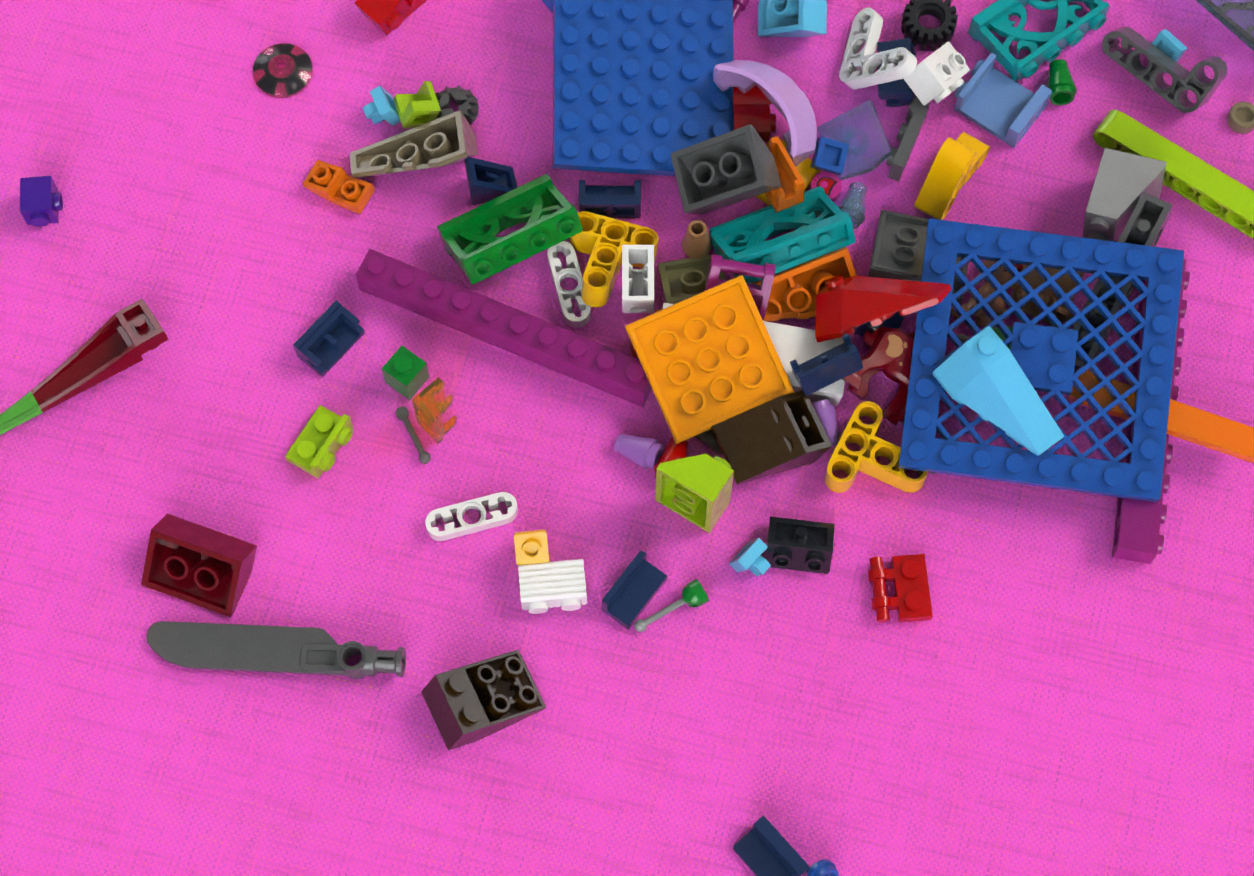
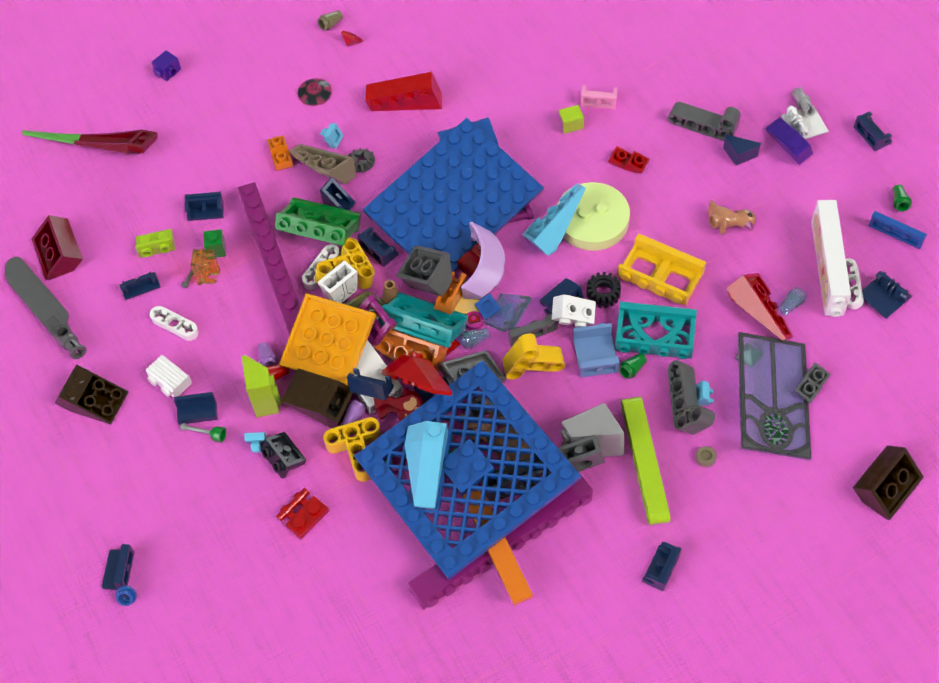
camera: 50 degrees right, 10 degrees down
(369, 510) = (139, 286): none -> dark blue hinge
(418, 107) = (344, 145): lime panel -> none
(531, 547) = (175, 353): yellow bracket -> none
(859, 67) = (551, 282): white beam -> none

